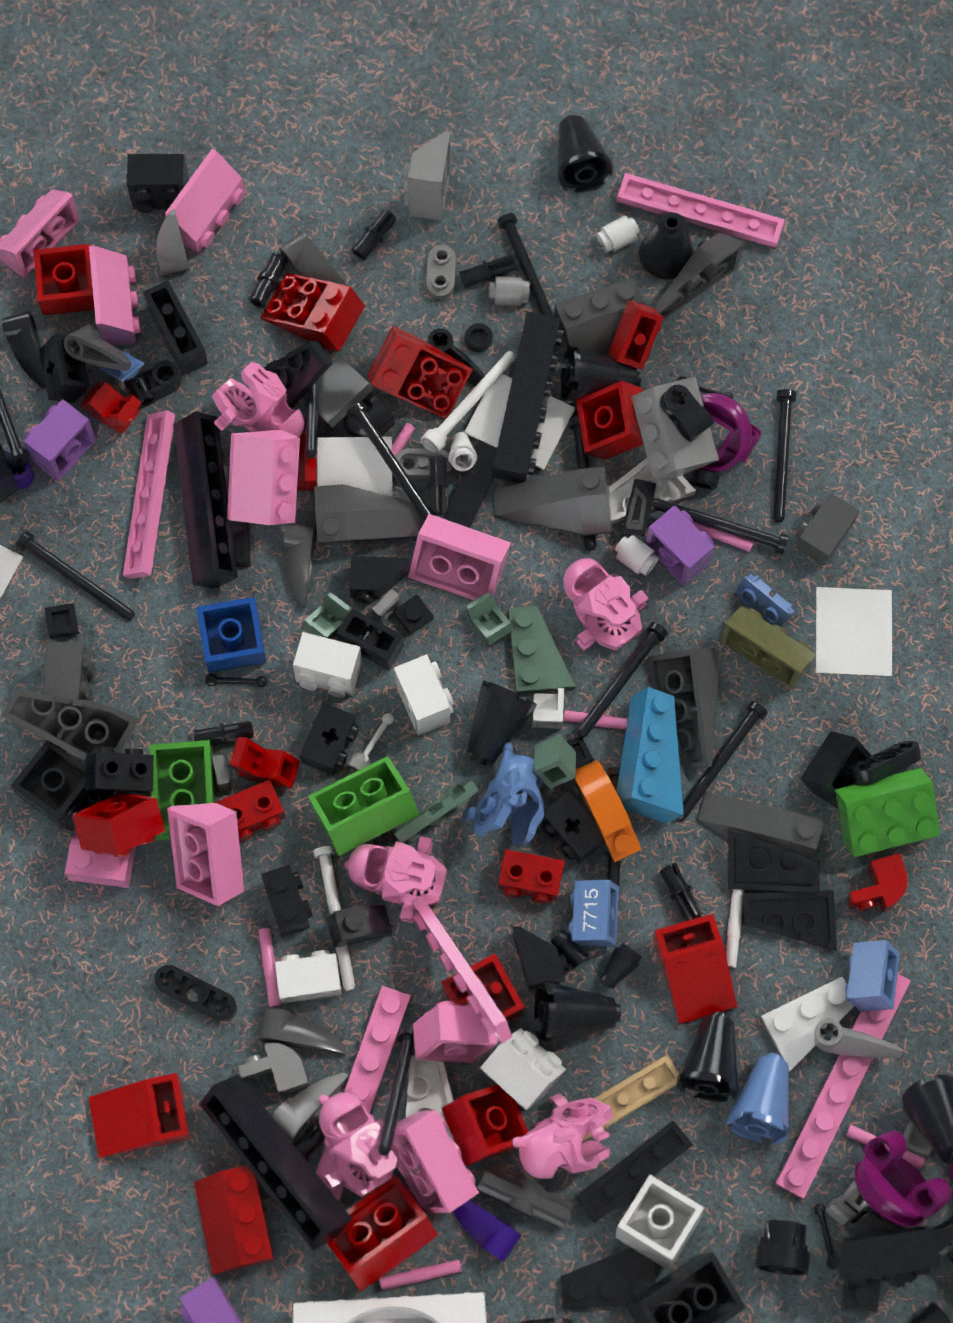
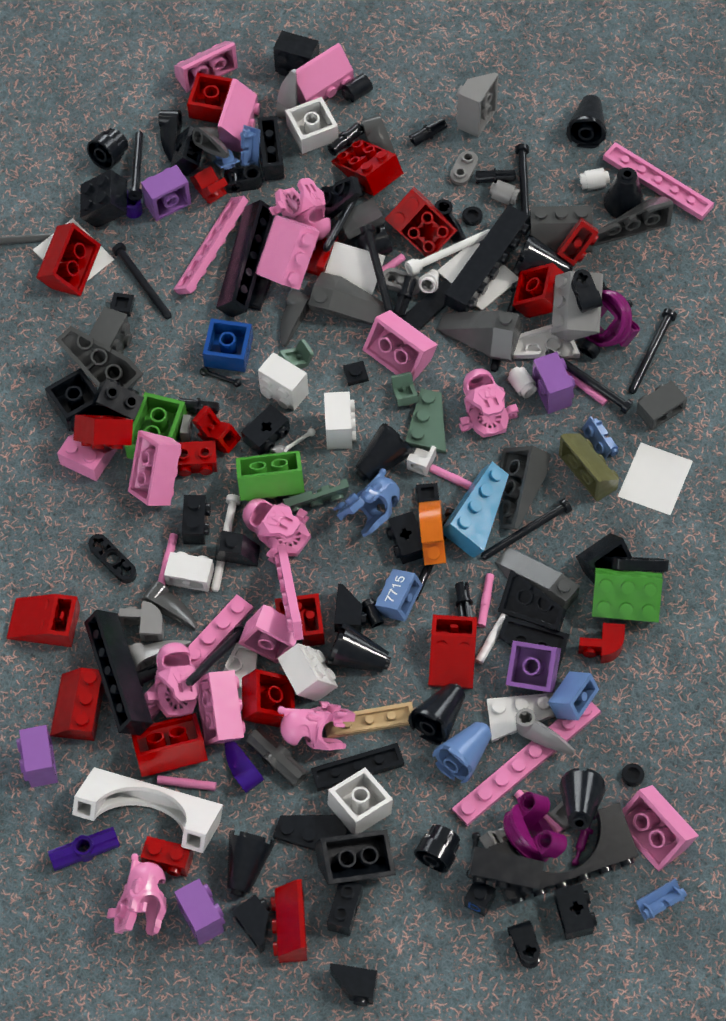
camera: 25 degrees right, 10 degrees down
(148, 336) = (251, 146): none -> medium blue hinge
(217, 276) = (312, 125): none -> white brick
(254, 200) = (357, 88): none -> black brick
(374, 639) = (320, 375): black brick -> none
(375, 576) = (339, 340): black slope -> none
(385, 606) = (337, 361): light grey tile -> none
(530, 876) = (365, 558): red brick -> none
(555, 761) = (410, 489): sand green brick -> none
(620, 965) = (402, 634): black cone -> none
(639, 507) = (537, 350): black sticker -> none
(656, 633) = (516, 435): black bar -> none
(705, 877) = (485, 600): none -> bright pink piece
(808, 954) = (533, 666): none -> medium lavender brick

